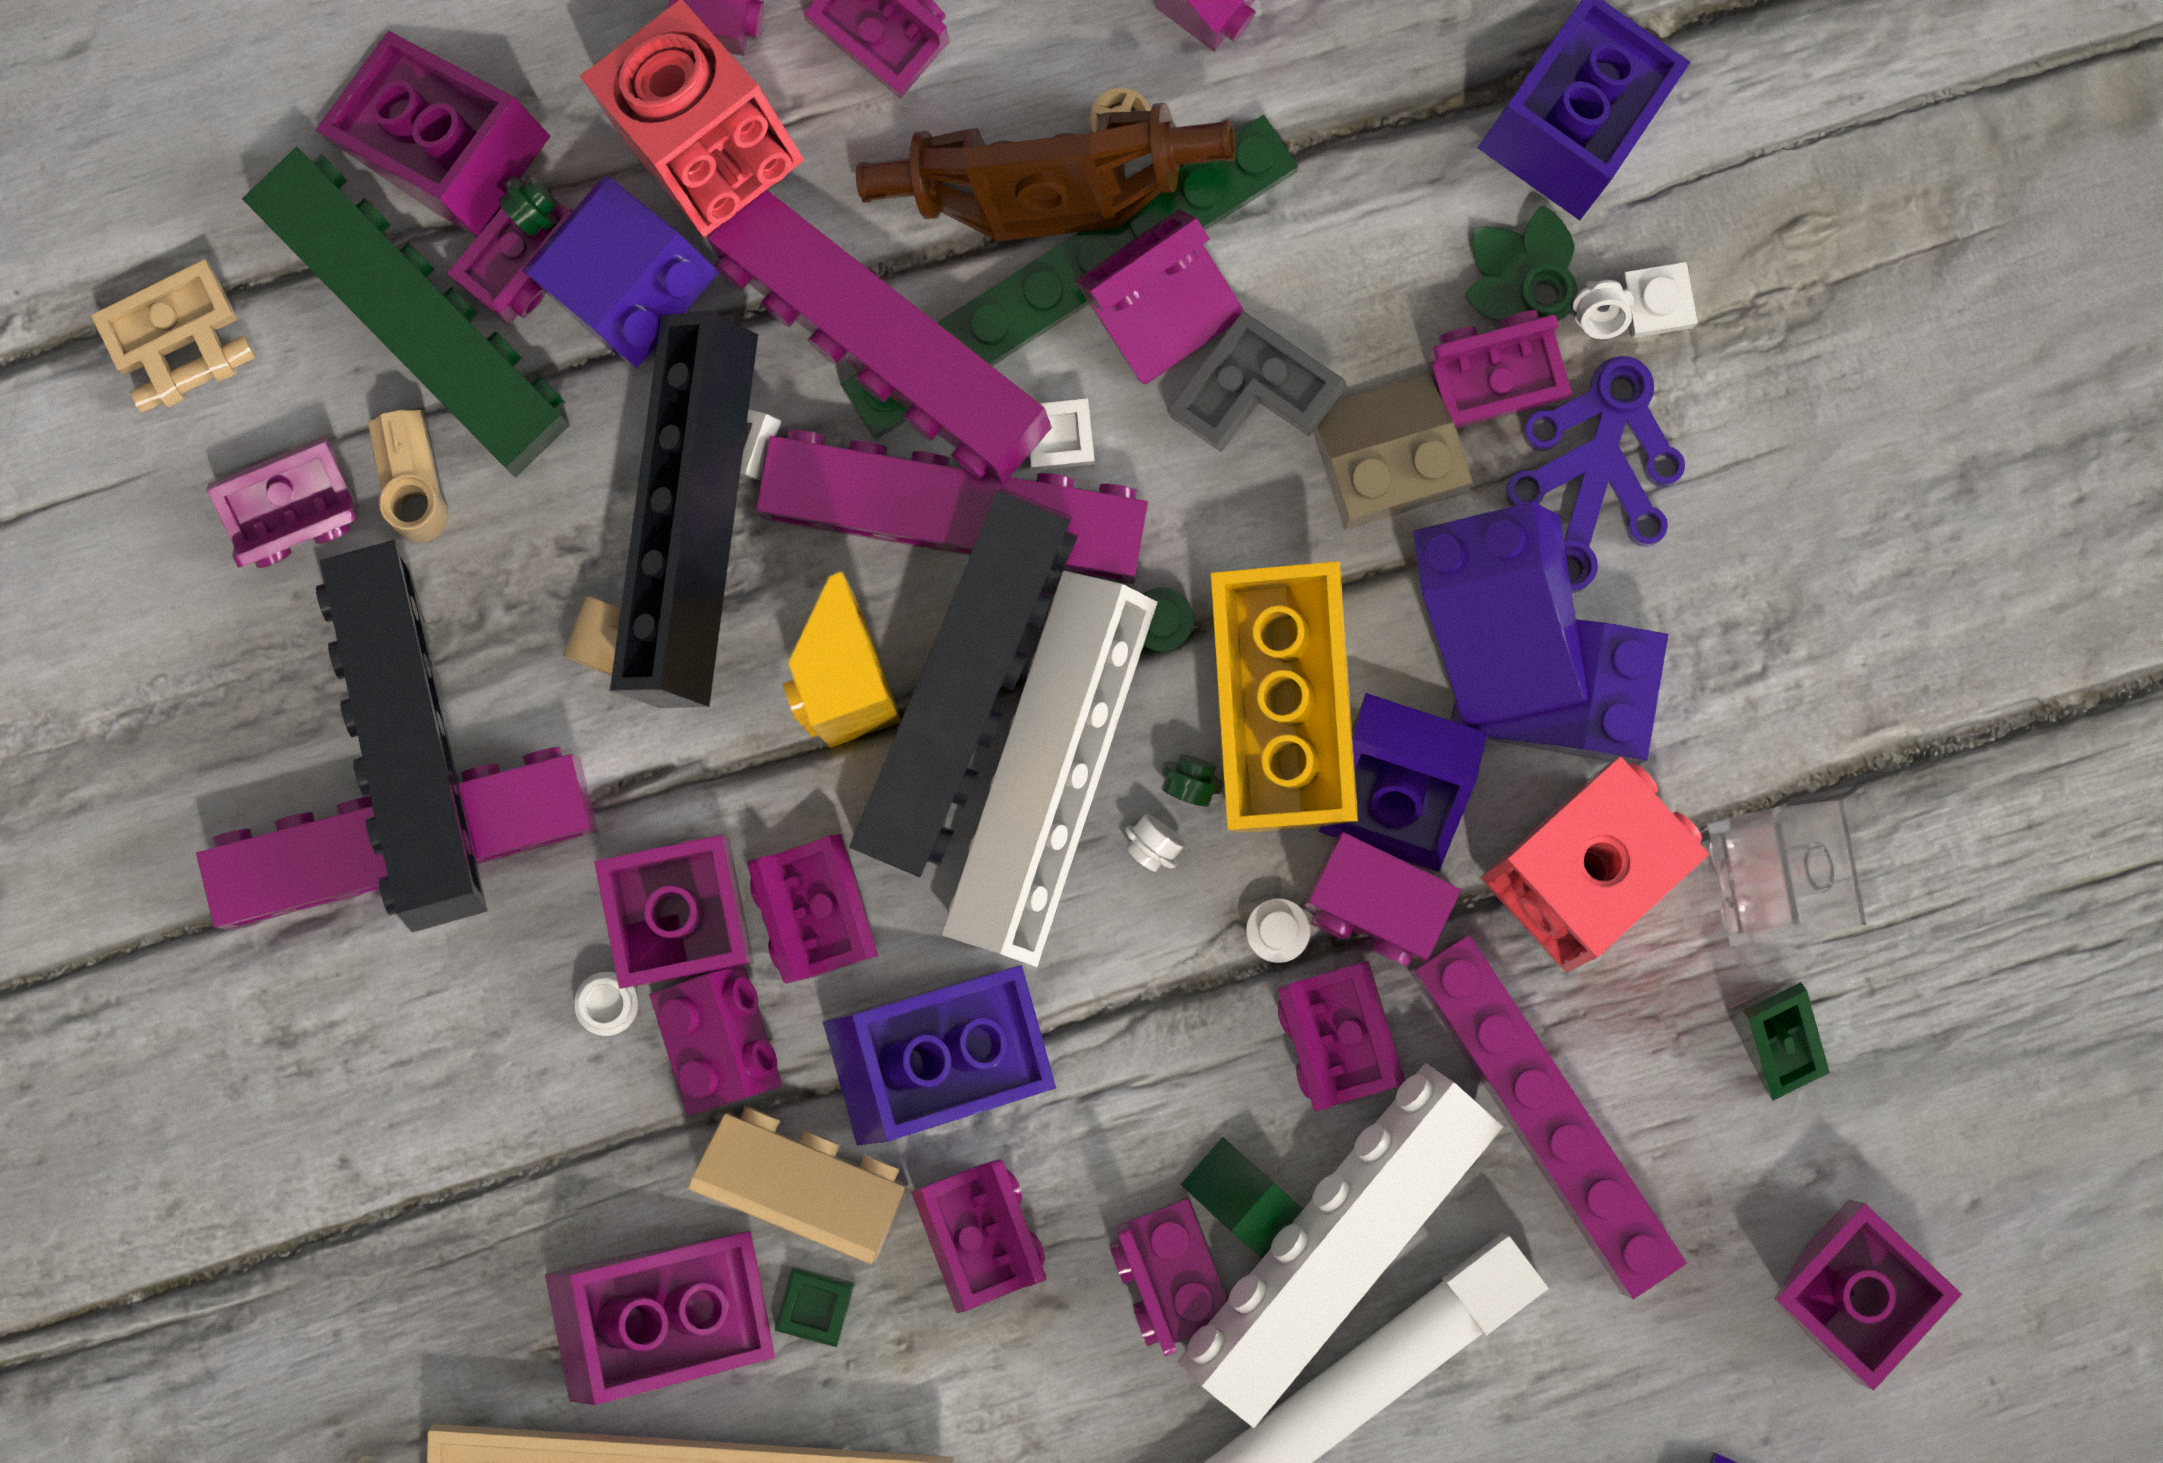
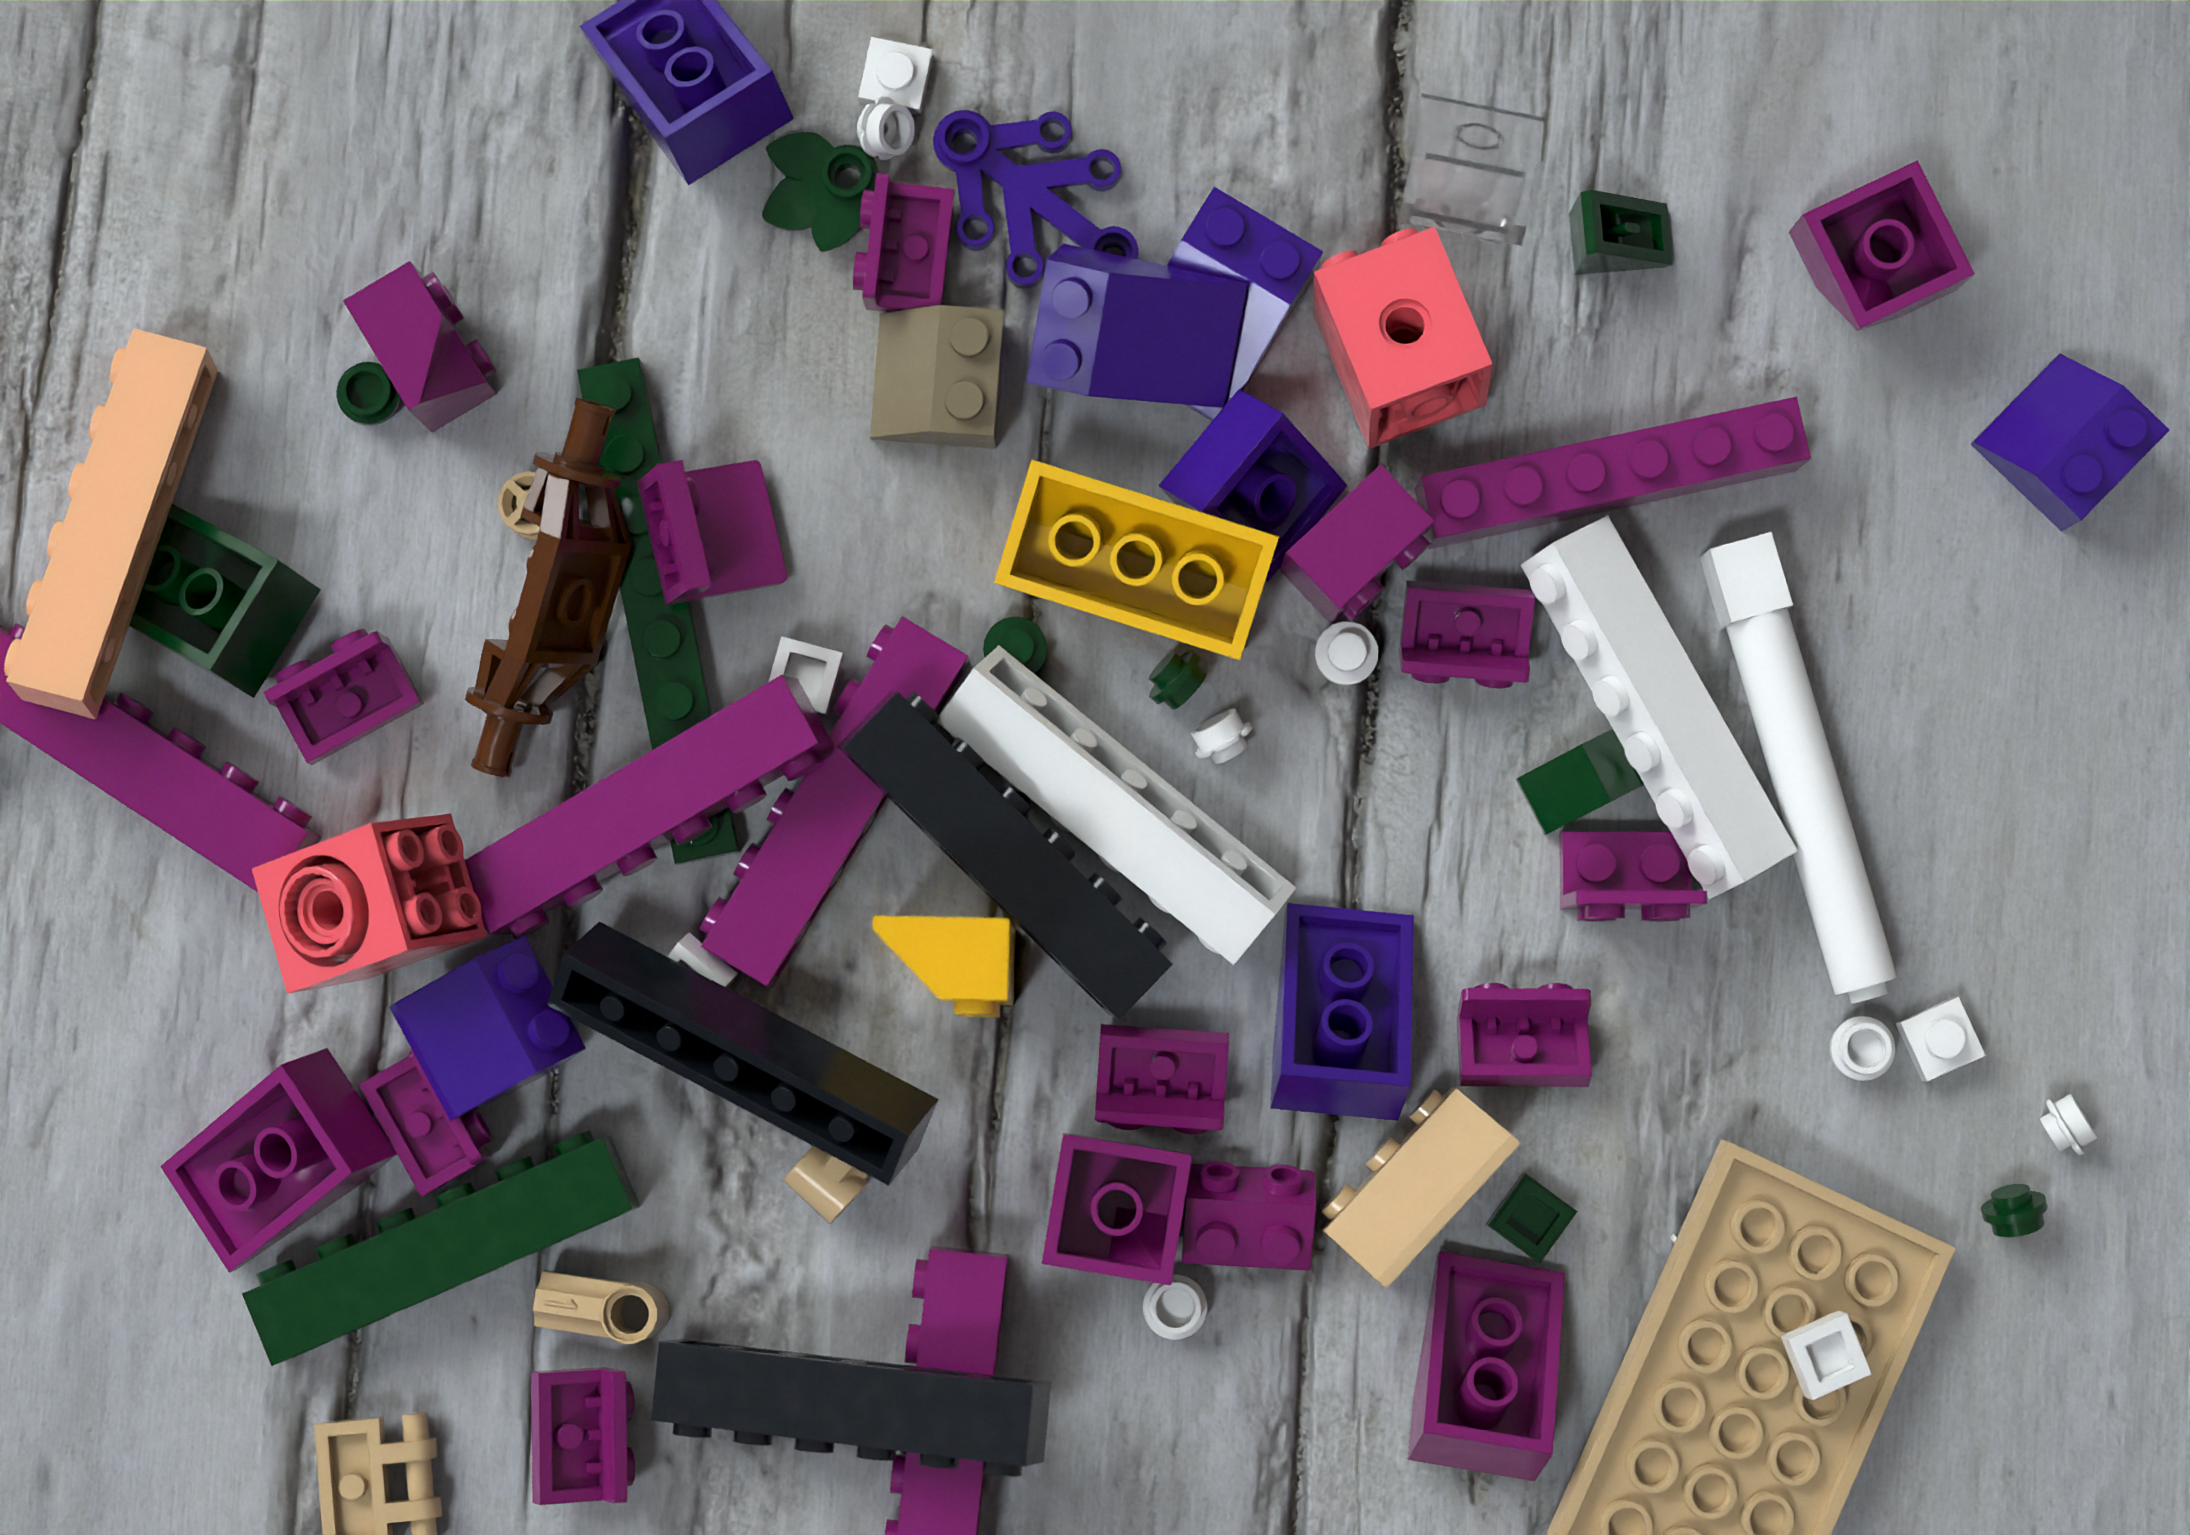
camera: 70 degrees left, 0 degrees up
(529, 205) = (388, 1091): dark green plate -> none
(1250, 369) = (813, 472): dark grey plate -> none

